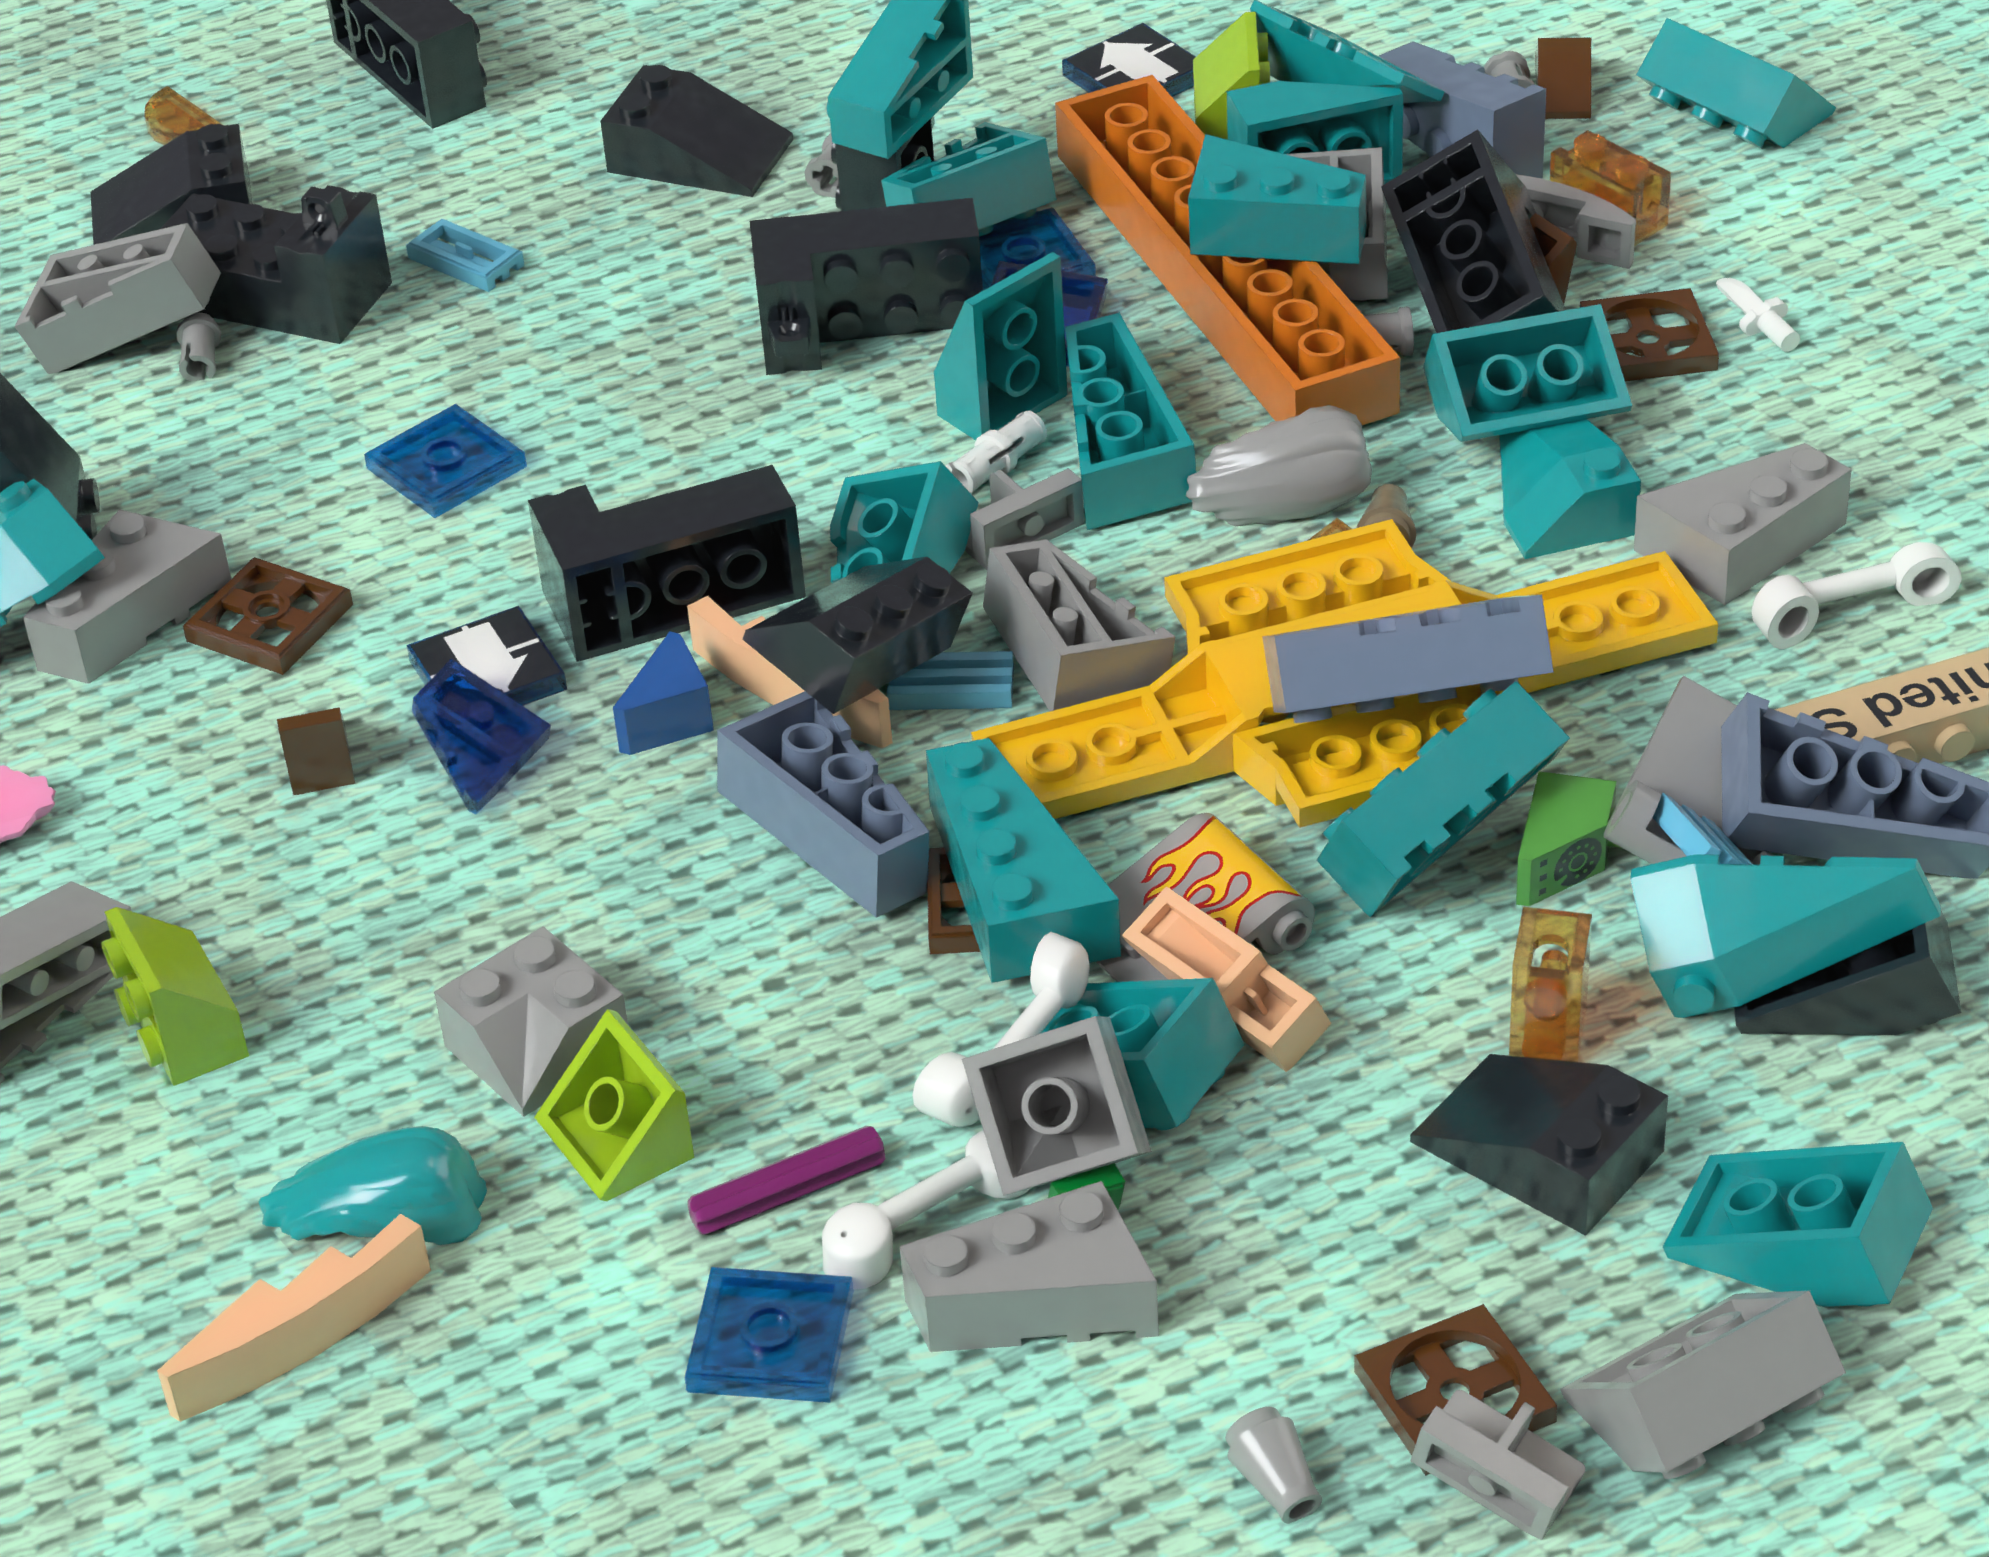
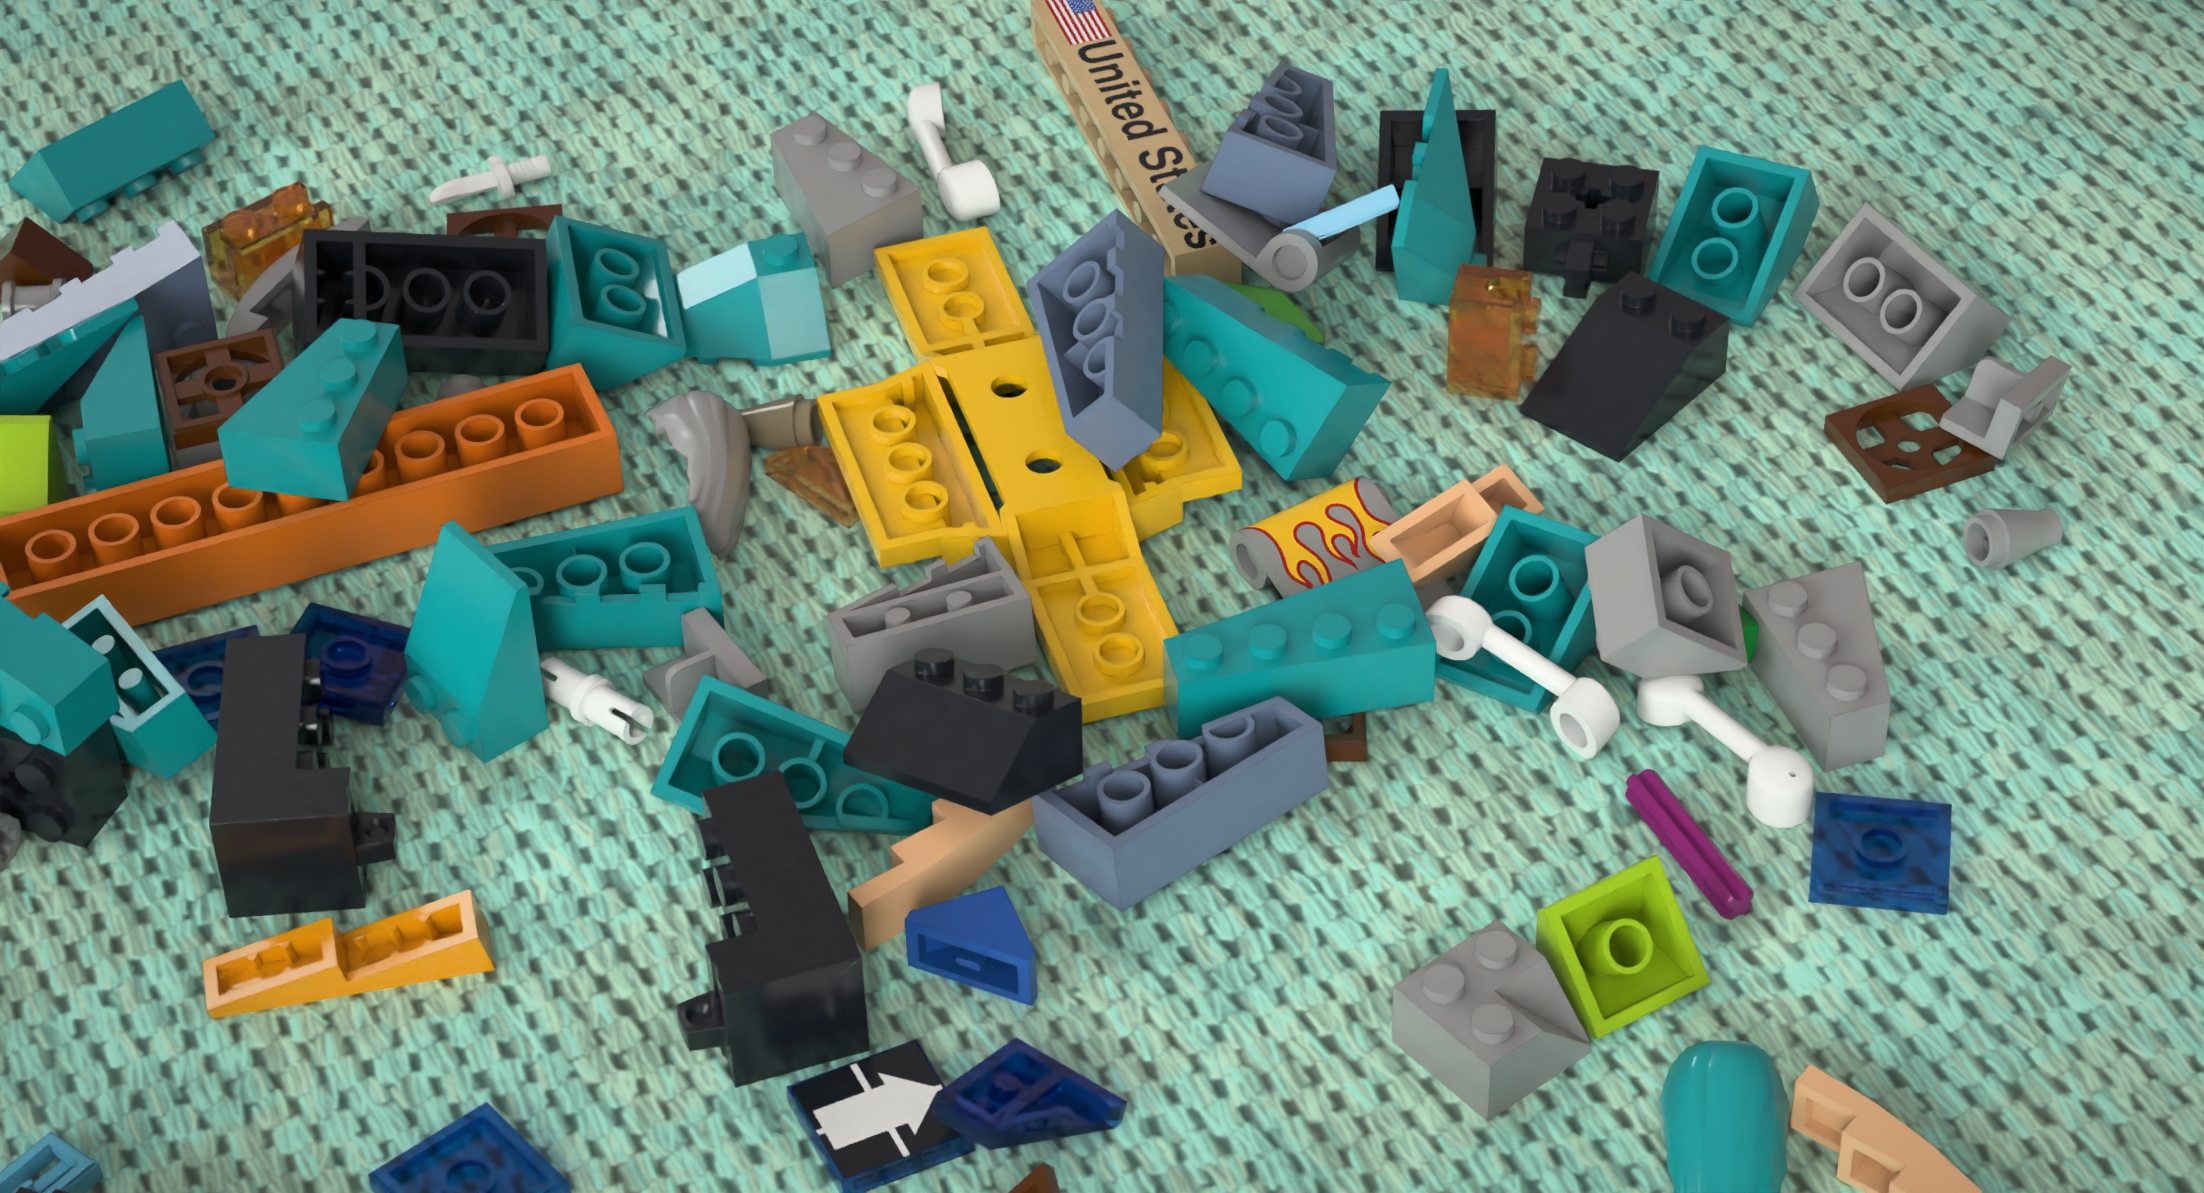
camera: 90 degrees left, 0 degrees up
(697, 374) = (321, 963): none -> light orange slope
(1343, 137) = (177, 364): none -> reddish brown piece
(1788, 1080) = (1590, 223): none -> black hinge

